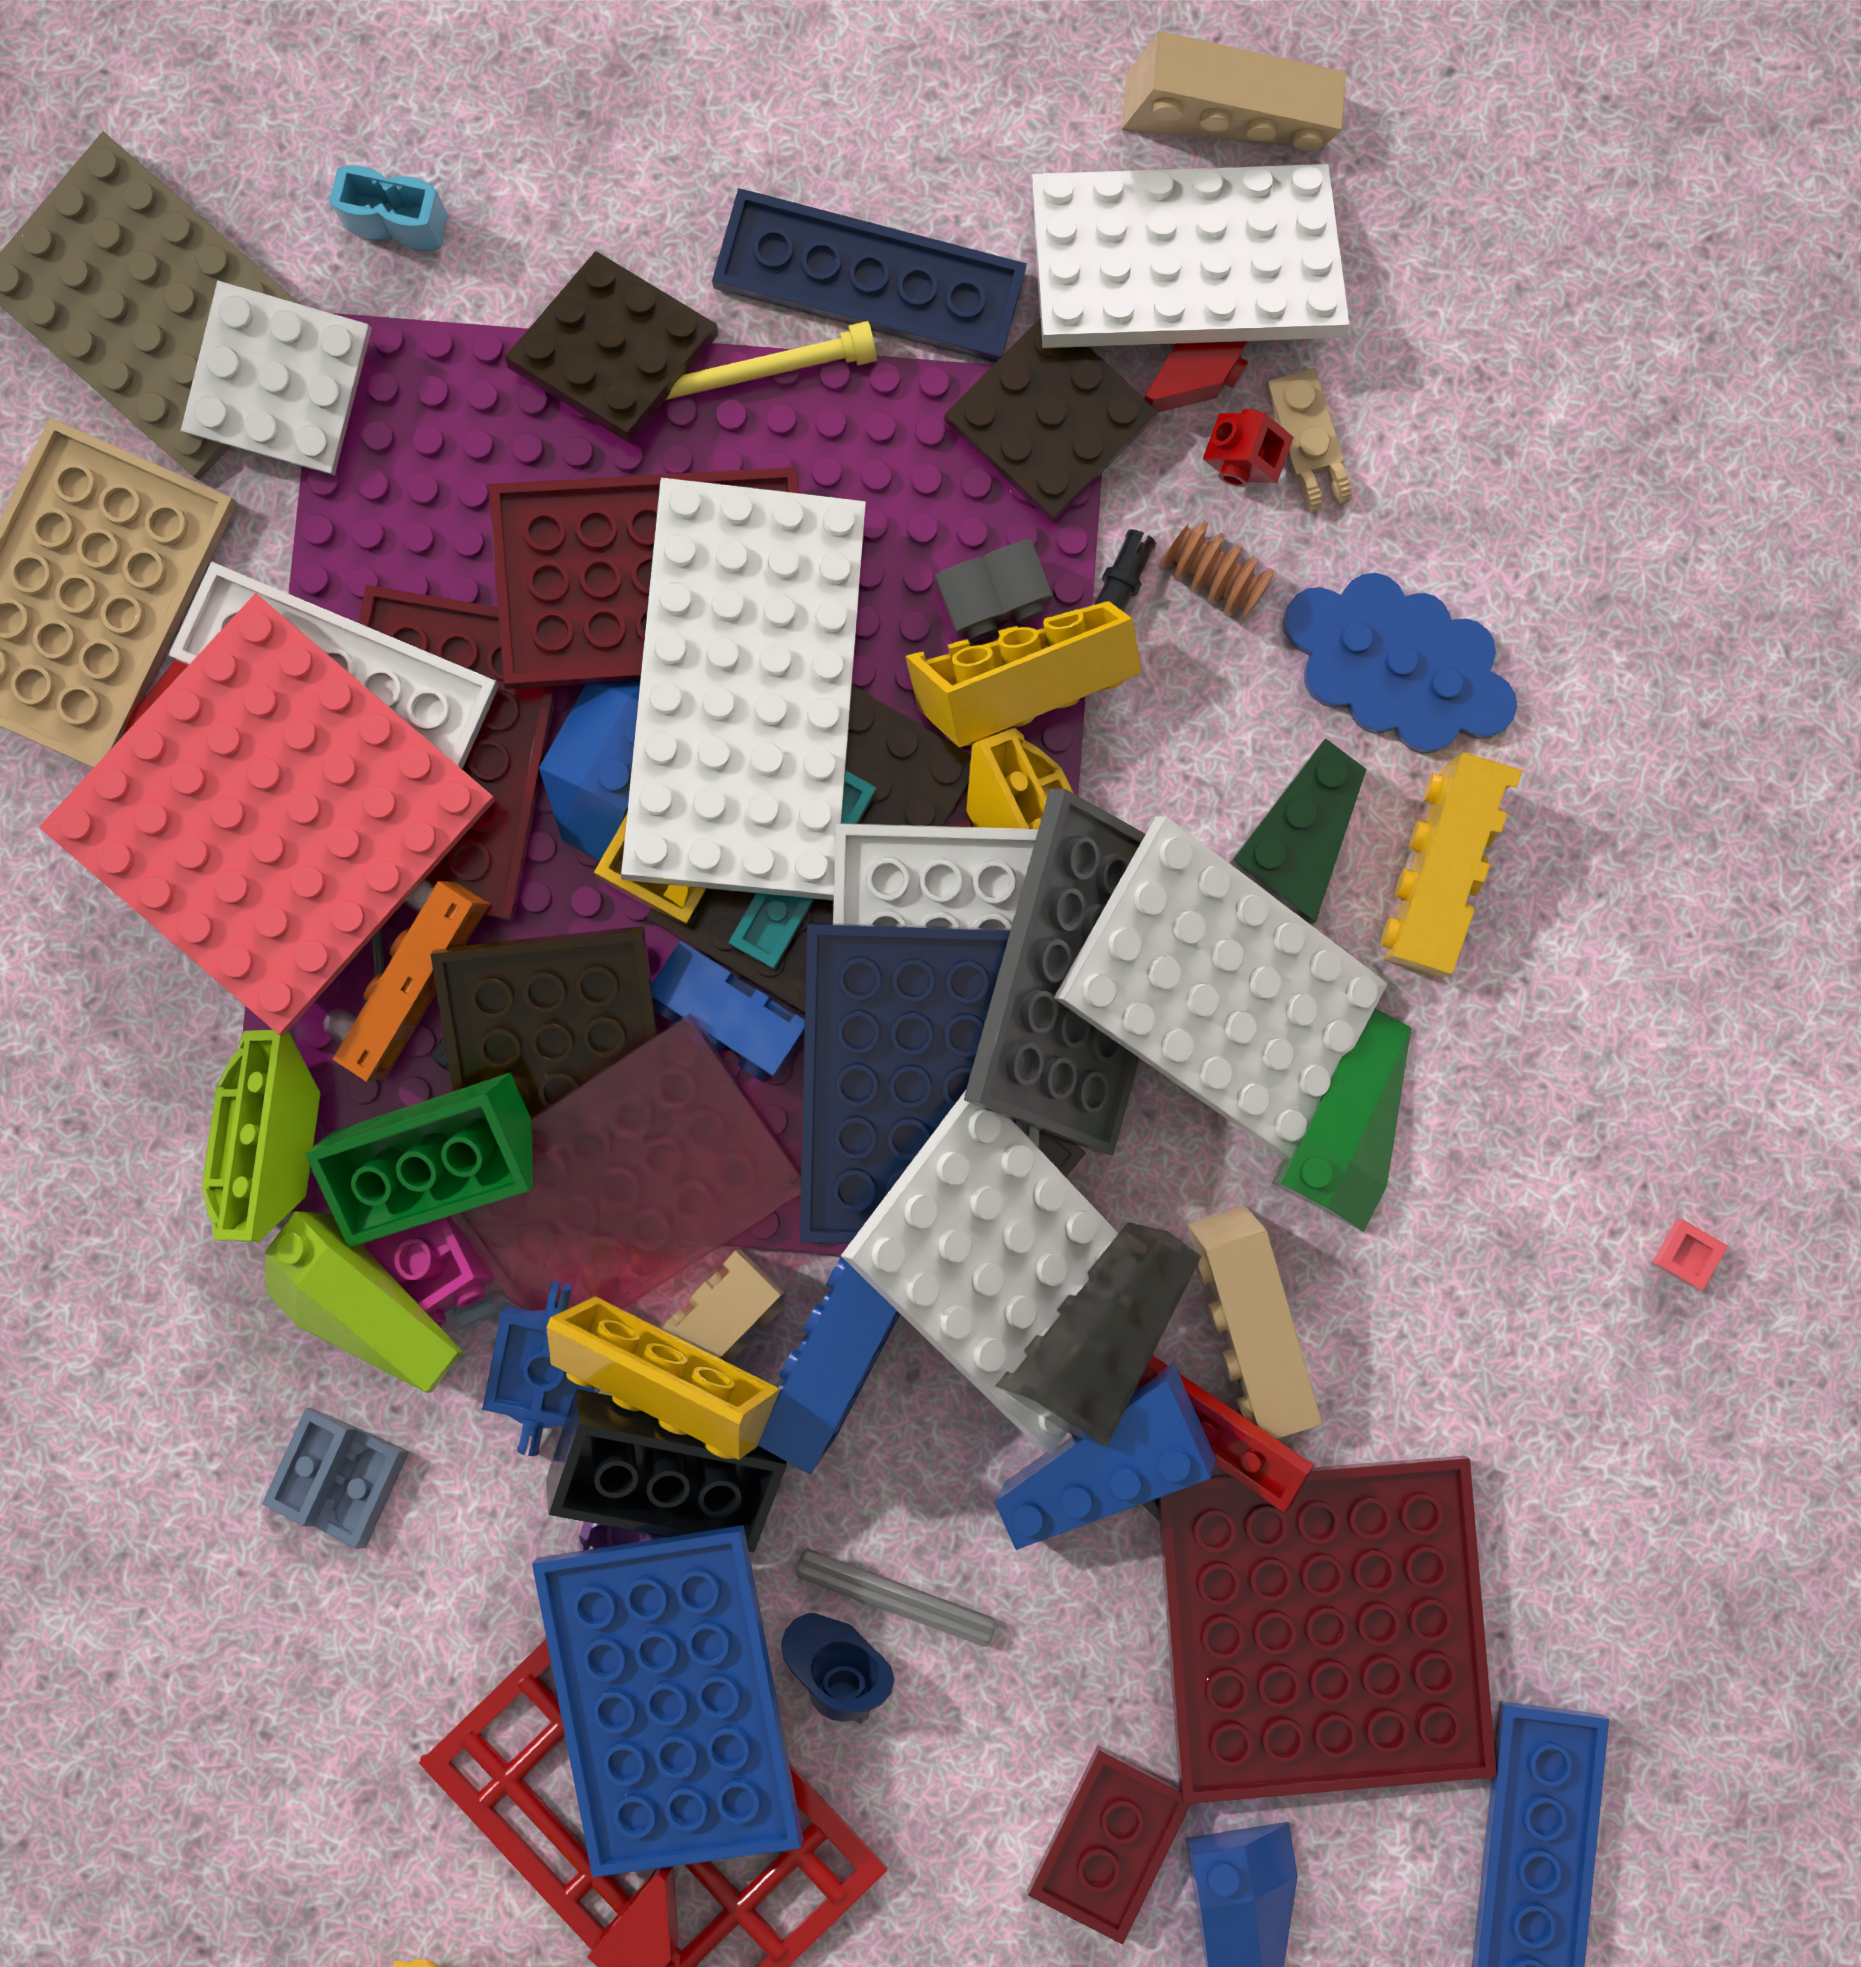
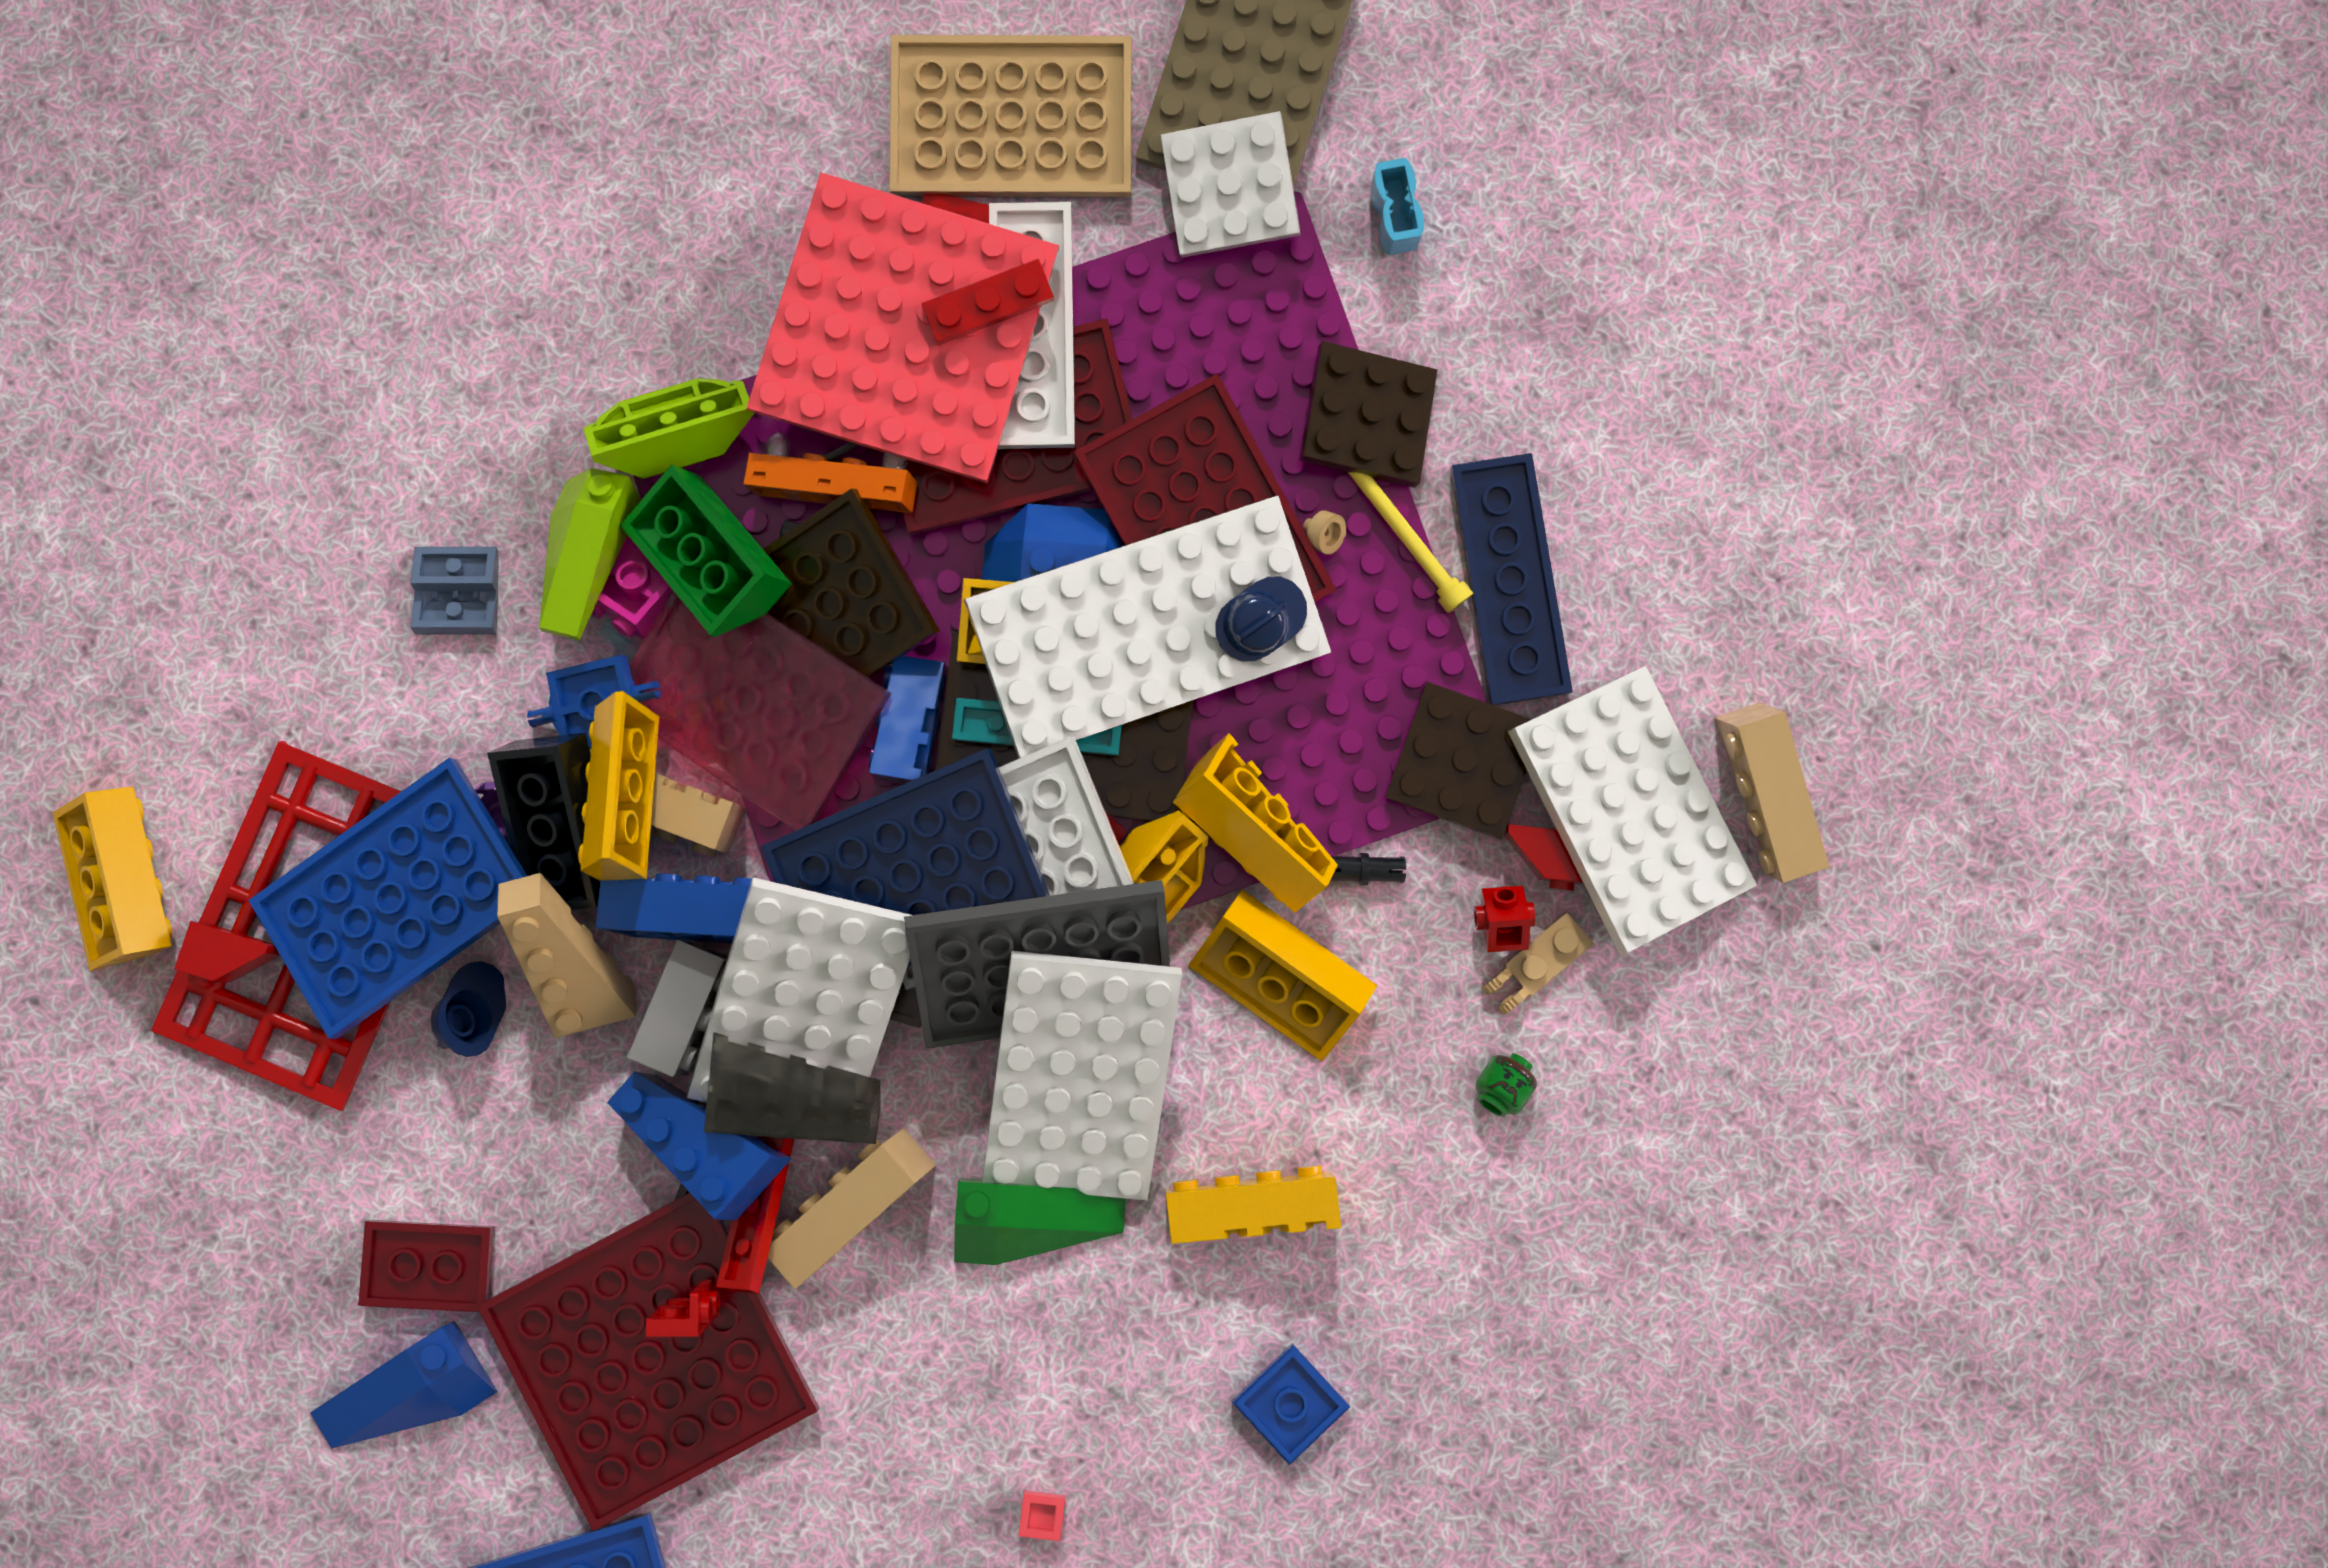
camera: 65 degrees right, 0 degrees up
(284, 699) = (988, 302): none -> red plate
(723, 449) = (1325, 531): none -> tan tile
(794, 557) = (1261, 618): none -> dark blue piece
(832, 1531) = (563, 964): none -> tan wedge
(895, 1597) = (539, 1056): light grey axle -> none
(947, 1416) = (679, 1010): none -> light grey brick
(994, 590) = (1309, 776): dark grey brick -> none
(1203, 721) = (1283, 975): none -> yellow slope
(1217, 570) = (1402, 936): nougat piece -> none
(1303, 832) = (1230, 1085): dark green wedge -> none
(1307, 1565) = (685, 1315): none -> red bracket
(1399, 663) = (1396, 1105): blue plate -> none
(1430, 531) = (1506, 1084): none -> green head
(1681, 923) = (1290, 1404): none -> blue plate

